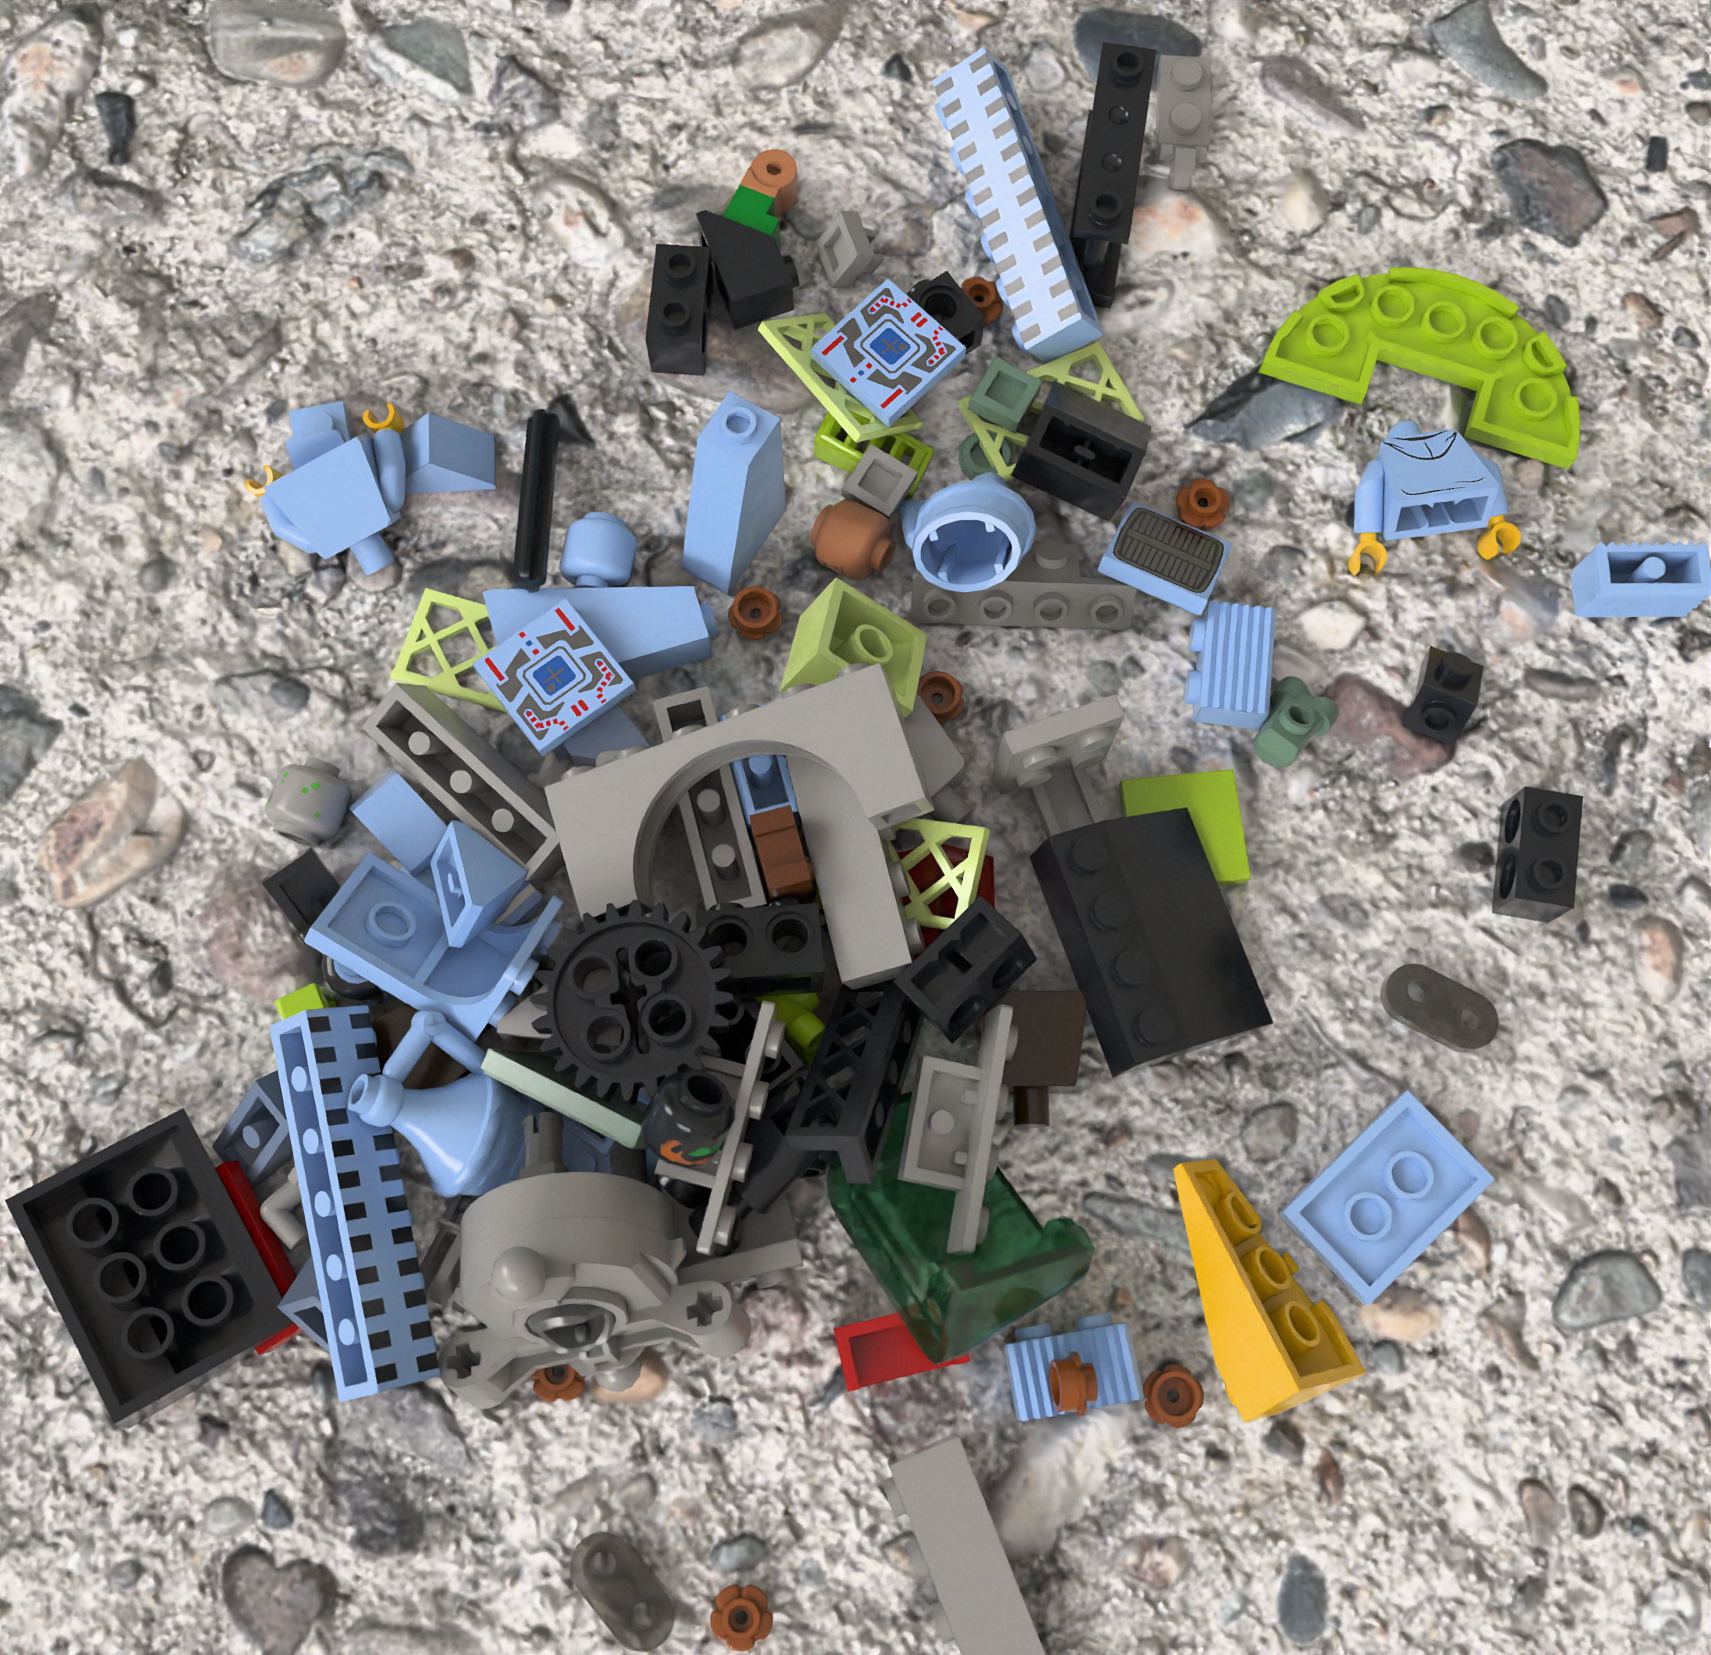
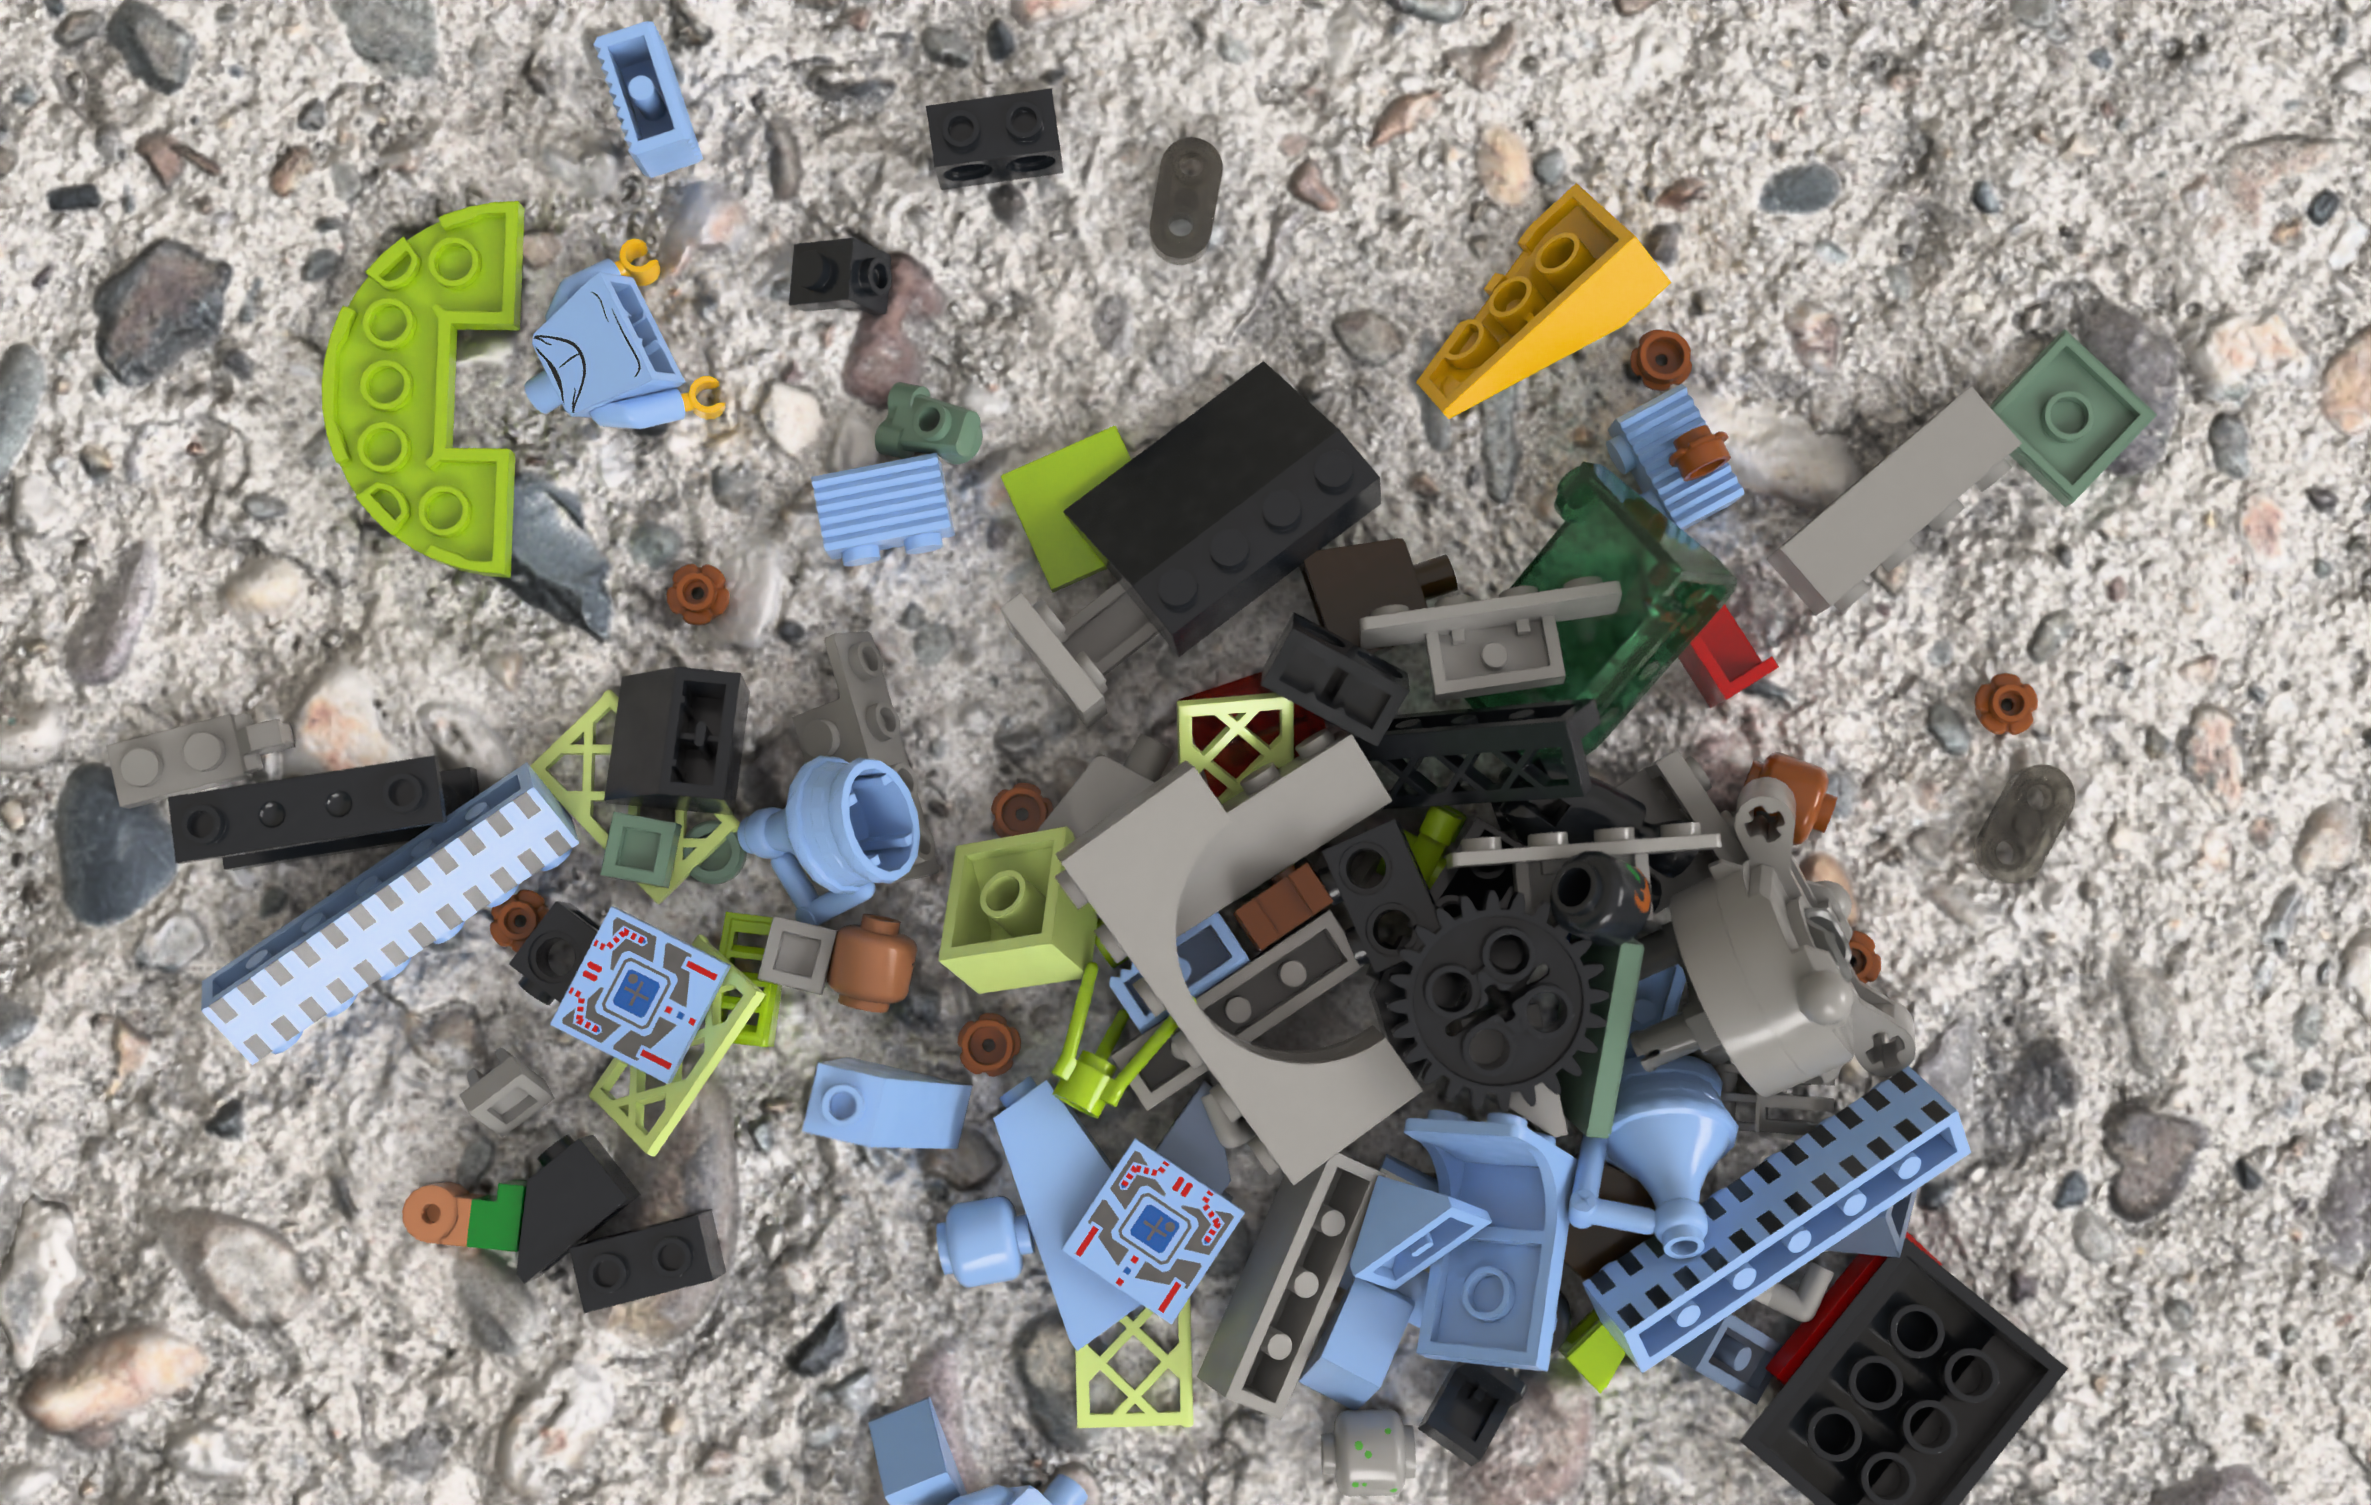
camera: 110 degrees left, 10 degrees up
(536, 501) = (943, 1335): black axle -> none
(695, 664) = (1088, 1080): none -> lime plant
(729, 1378) = (1809, 788): none -> dark orange head
(1165, 558) = (783, 613): tile -> none
(1386, 1197) = (1399, 205): light blue plate -> none

